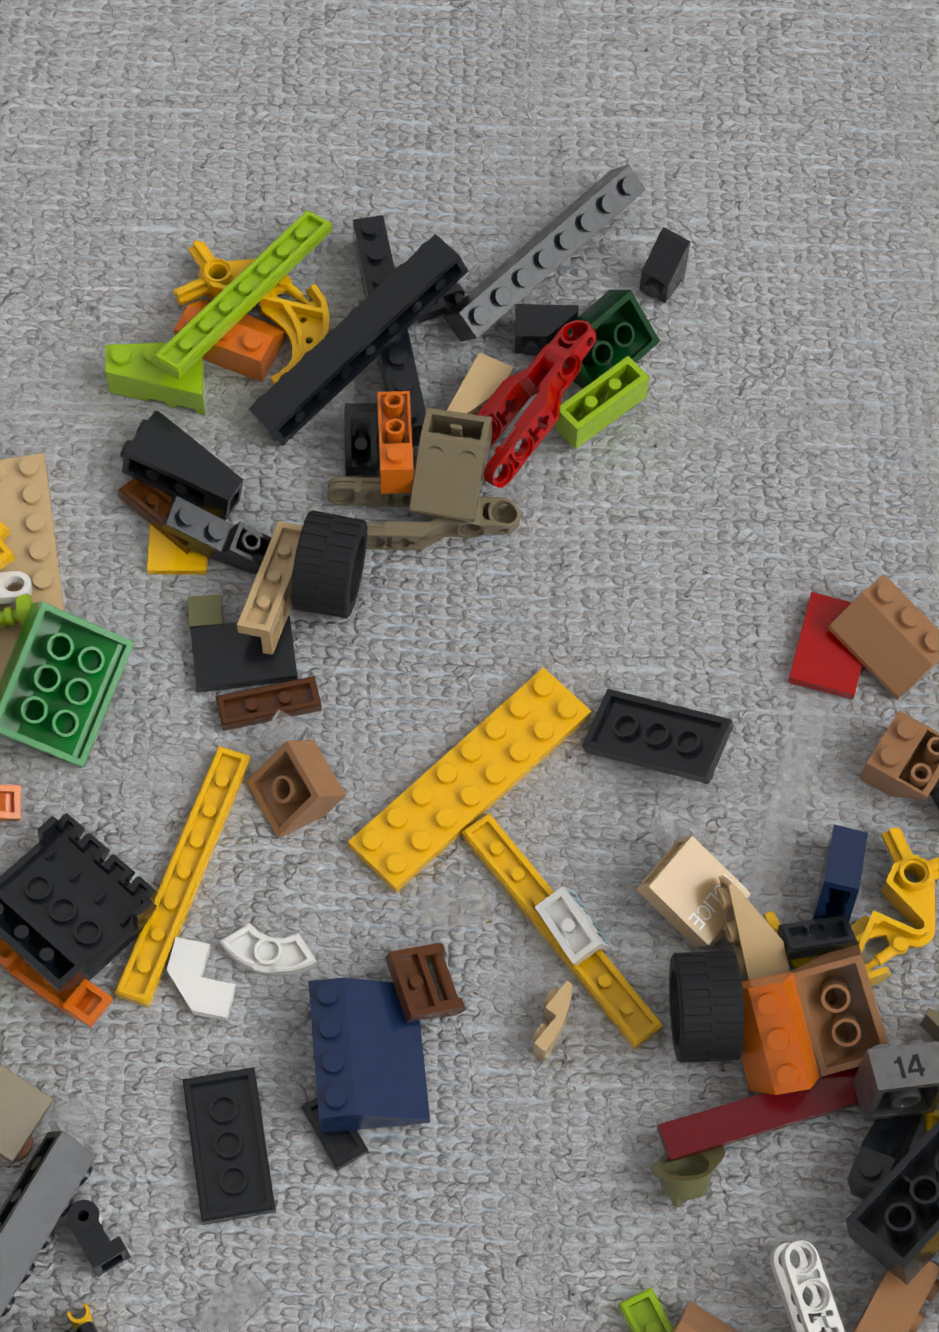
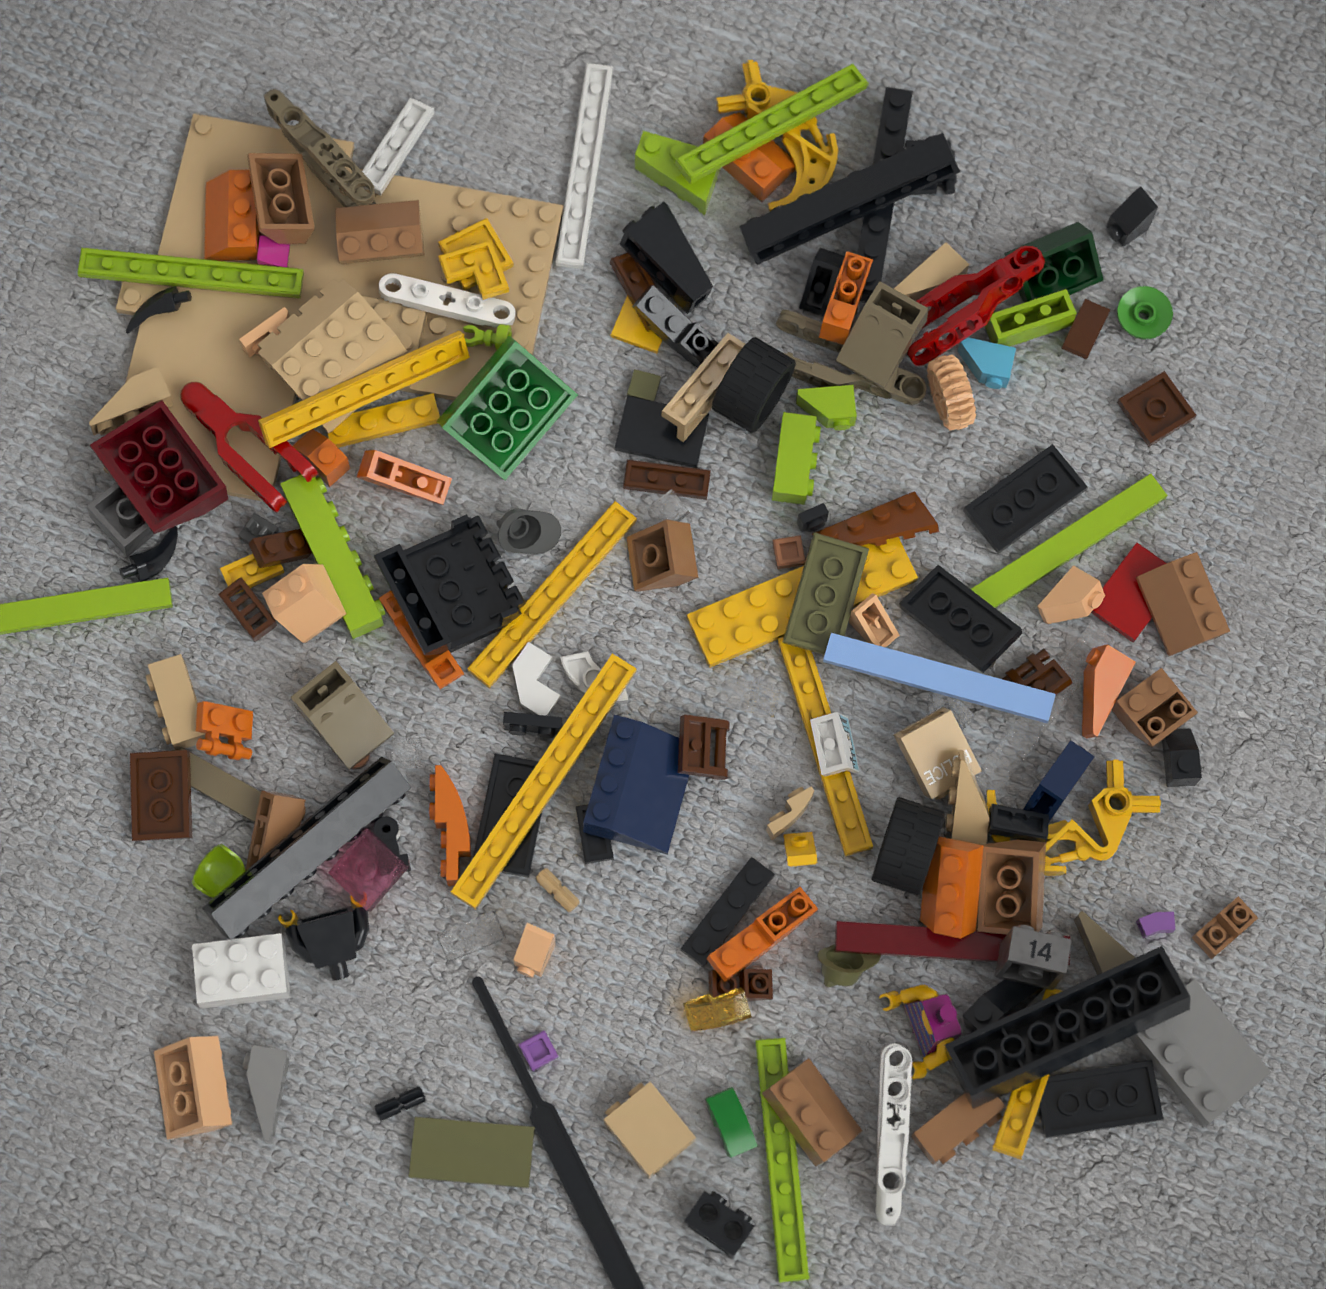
camera: 20 degrees right, 10 degrees up
(53, 408) = (584, 166): none -> white tile
(78, 1273) = (368, 870): none -> clear pink tile
(131, 812) = (528, 531): none -> dark grey piece
(156, 1171) = (449, 814): none -> orange slope
(227, 1025) = (521, 723): none -> black plate
(251, 1094) = (543, 781): none -> yellow plate
(309, 1210) = (553, 886): none -> tan piece
(315, 1295) = (534, 951): none -> light nougat slope
(405, 631) = (795, 458): none -> lime brick
(420, 562) = (831, 405): none -> lime slope
(436, 734) = (788, 552): none -> nougat tile
(449, 687) = (813, 518): none -> black plate
(497, 764) = (825, 593): none -> olive tile
(522, 671) = (887, 521): none -> dark orange wing
(525, 1165) = (727, 911): none -> black plate
(539, 325) = (1007, 233): black slope -> none
(544, 253) = (1037, 169): brick -> none
(548, 502) = (951, 392): none -> light nougat gear
(557, 1288) = (717, 1012): none -> clear yellow slope
(562, 777) = (873, 622): none -> light nougat slope
(573, 460) = (988, 361): none -> medium azure slope
(575, 1244) = (754, 982): none -> reddish brown slope
(577, 1174) = (762, 934): none -> orange slope
(583, 1057) = (800, 849): none -> yellow plate
(661, 807) = (939, 678): none -> light blue tile
(663, 394) = (1085, 329): none -> reddish brown slope
(672, 588) = (1025, 498): none -> black plate
(721, 347) = (1146, 301): none -> bright green dish
(741, 615) = (1071, 541): none -> lime tile
(768, 672) = (1072, 597): none -> light nougat slope
(772, 449) = (1156, 409): none -> reddish brown plate
(774, 780) = (1046, 677): none -> reddish brown plate
(815, 1202) = (932, 1023): none -> torso
(842, 755) = (1102, 684): none -> orange slope

